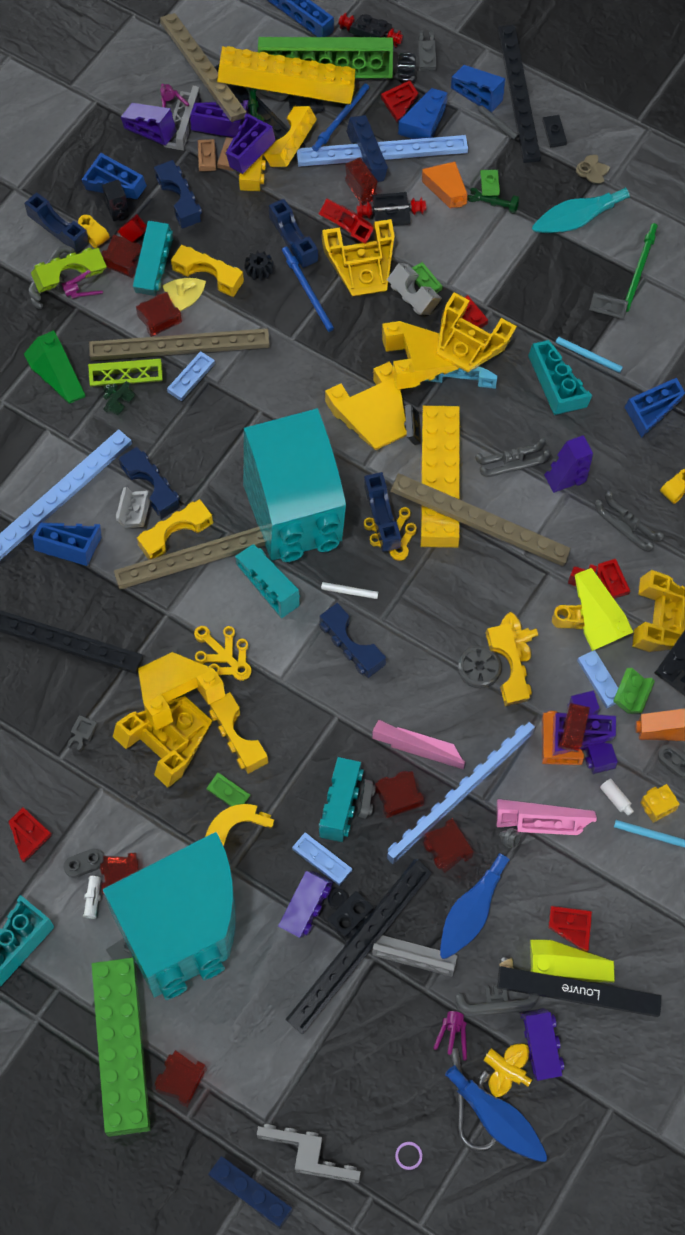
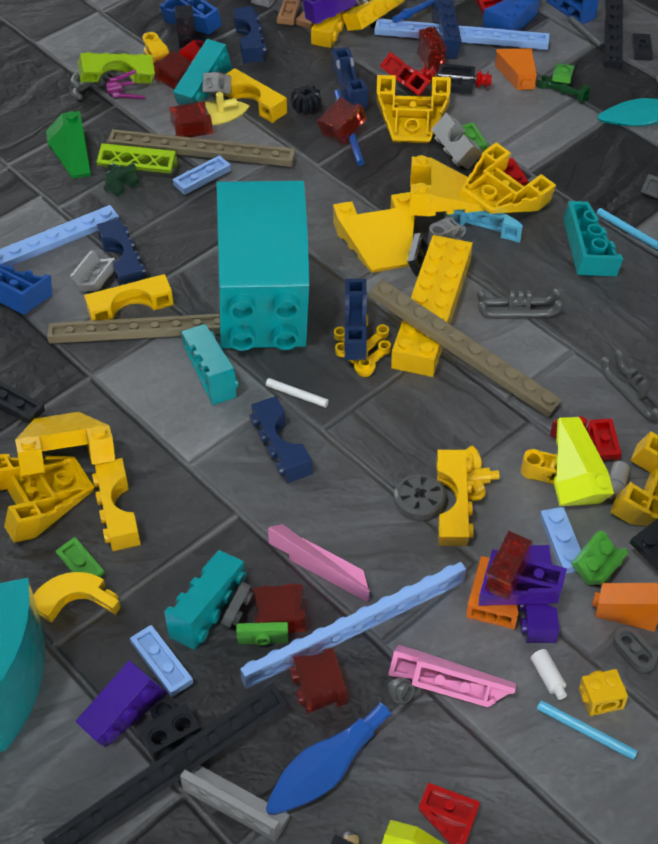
camera: 15 degrees right, 15 degrees down
(42, 213) = (115, 30): dark blue arch -> none
(172, 269) = (216, 83): none -> light grey brick
(224, 655) = (144, 443): yellow plant -> none
(301, 286) = (341, 120): none -> clear red hips
(392, 818) = (262, 633): none -> bright green plate
(431, 393) = (446, 228): none -> light grey piece
(572, 466) = (583, 316): dark purple wedge -> none
(632, 612) = (619, 475): none -> light grey piece

